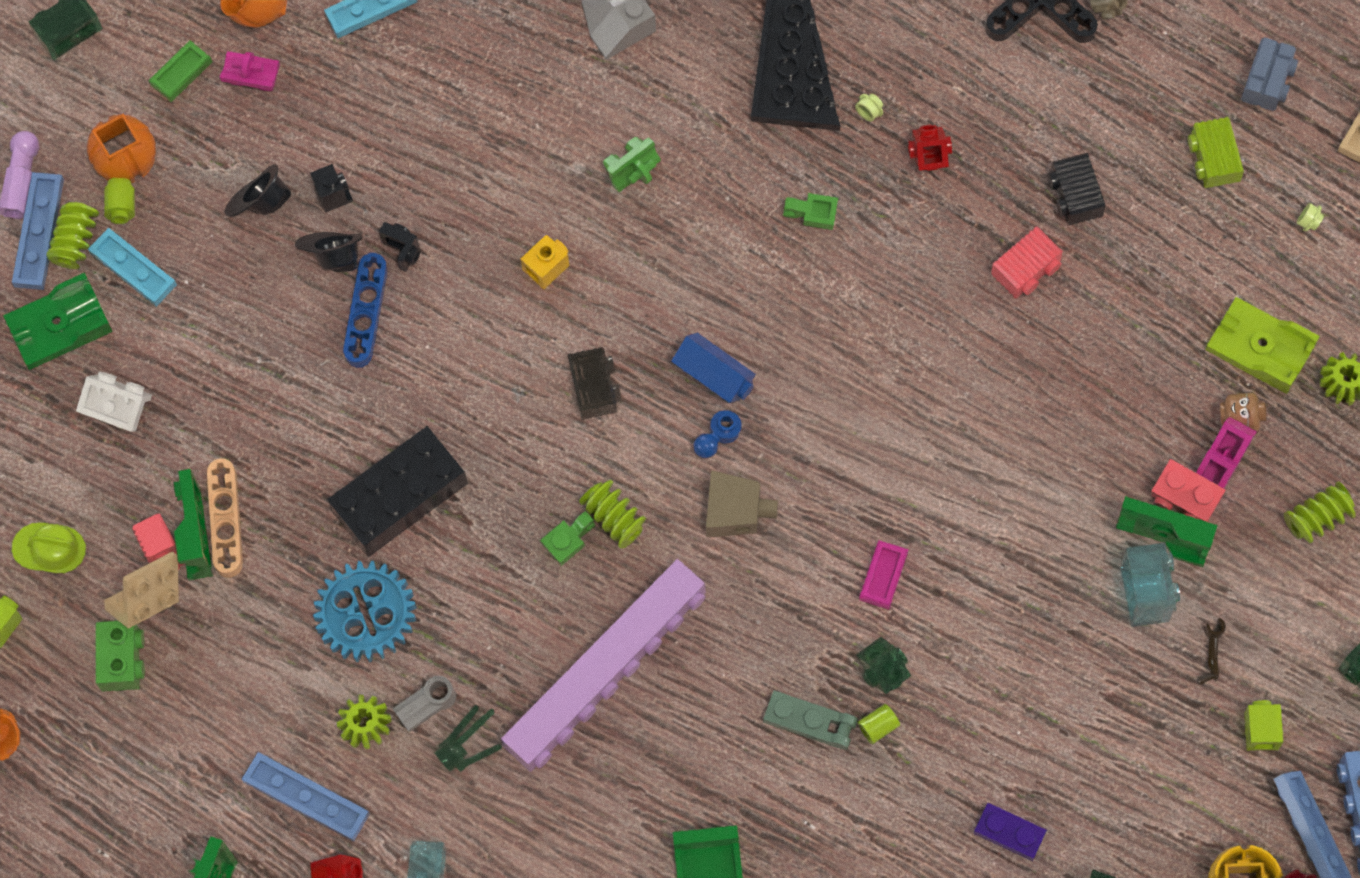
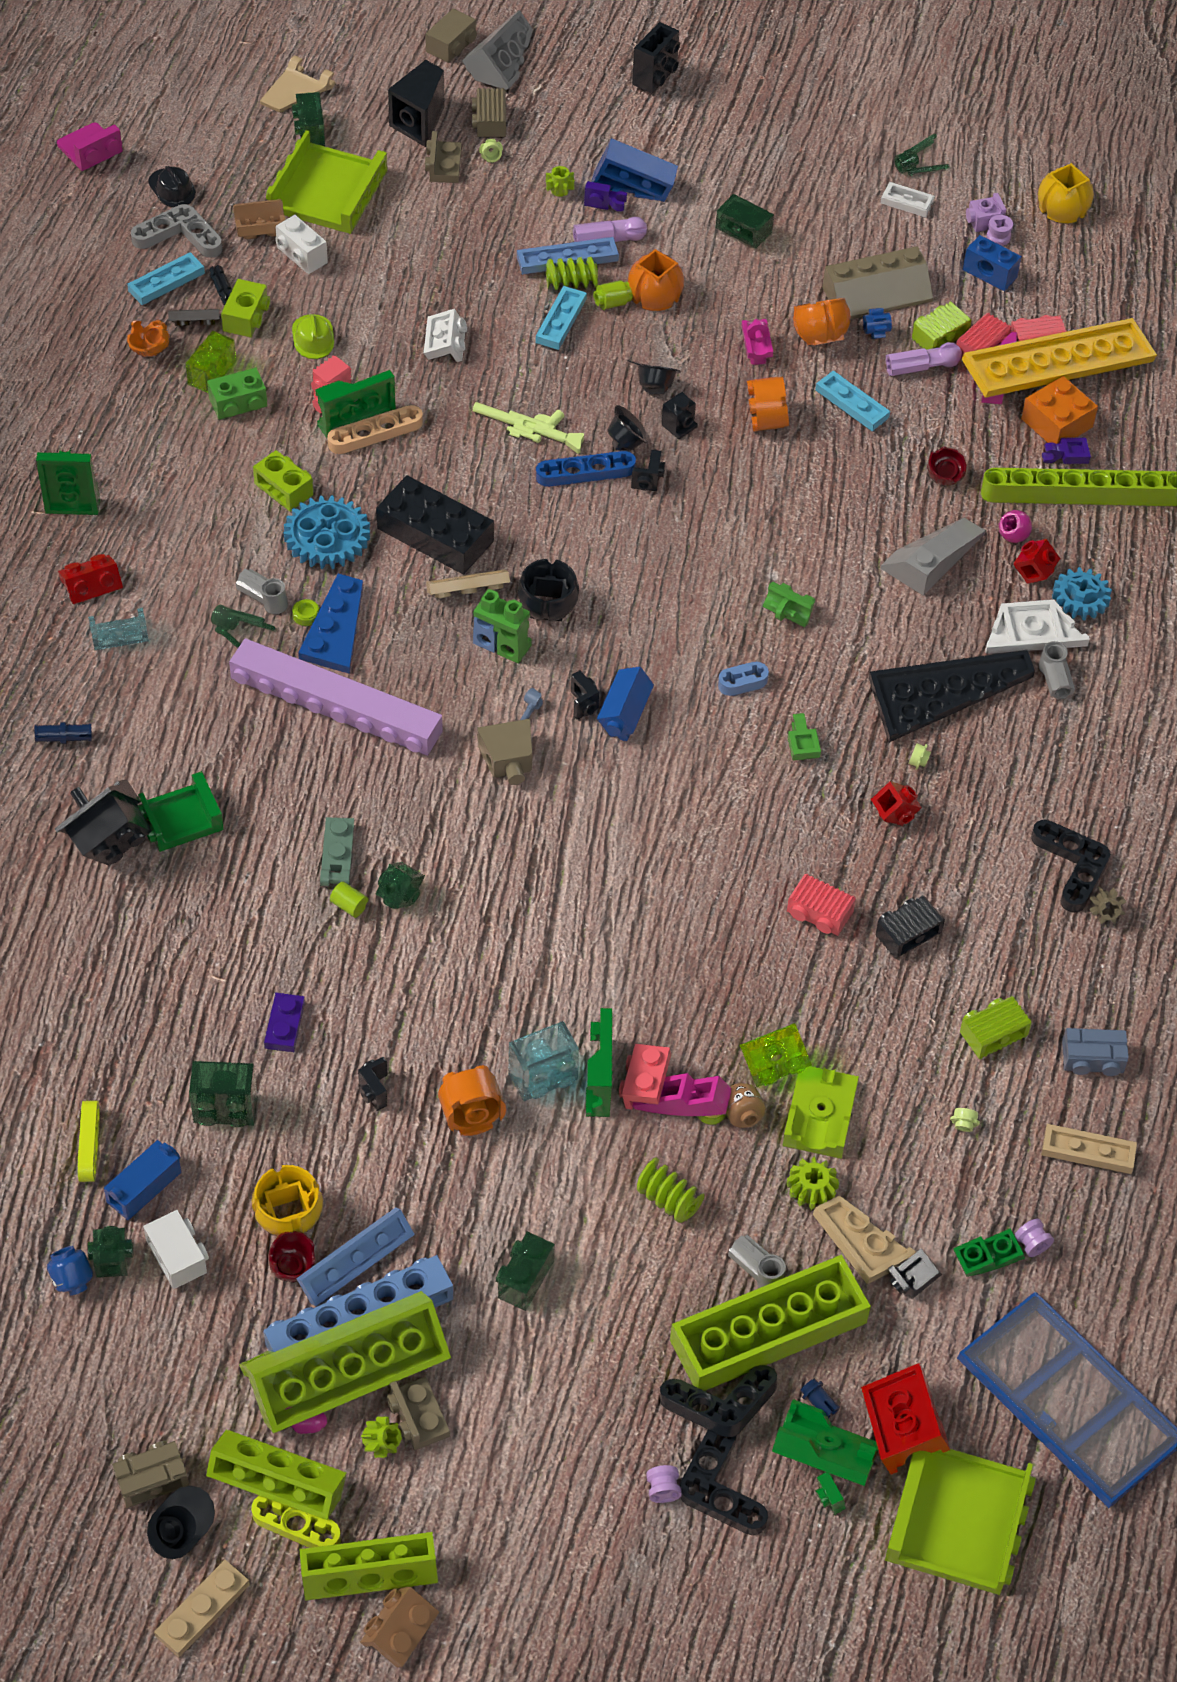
camera: 65 degrees right, 15 degrees down
(58, 672) = (210, 360): none -> clear neon green brick
(80, 322) = (505, 302): green piece -> none
(146, 591) = (289, 384): tan bracket -> none
(180, 71) = (741, 303): bright green tile -> none
(274, 646) = (283, 480): none -> lime brick
(278, 353) = (540, 424): none -> yellowish green piece
(305, 796) = (161, 537): medium blue plate -> none
(354, 90) = (768, 403): none -> orange brick
(374, 726) = (233, 554): lime gear -> none
(467, 666) = (305, 612): none -> lime tile
(490, 481) = (468, 583): none -> tan plate
(503, 642) = (334, 628): none -> blue wing
(545, 261) = (675, 568): yellow brick -> none
(547, 381) = (548, 580): none -> black piece
(565, 541) = (438, 647): bright green plate -> none
(576, 460) = (503, 624): none -> bright green hips
(593, 383) = (580, 627): clear smoke brick -> none
(613, 513) = (469, 668): lime piece -> none
(671, 460) = (534, 700): none -> sand blue hand
(682, 404) = (586, 693): none -> black bracket
(707, 444) = (556, 718): blue plate -> none
(718, 242) = (743, 678): none -> medium blue beam
(883, 574) = (487, 874): dark pink tile -> none
(1122, 764) = (370, 1085): none -> black bracket
(1174, 668) = (471, 1100): none -> orange brick
(1189, 380) = (779, 1042): none -> clear neon green brick
(1213, 652) = (526, 1141): dark brown piece -> none
(1263, 726) = (445, 1191): lime brick -> none

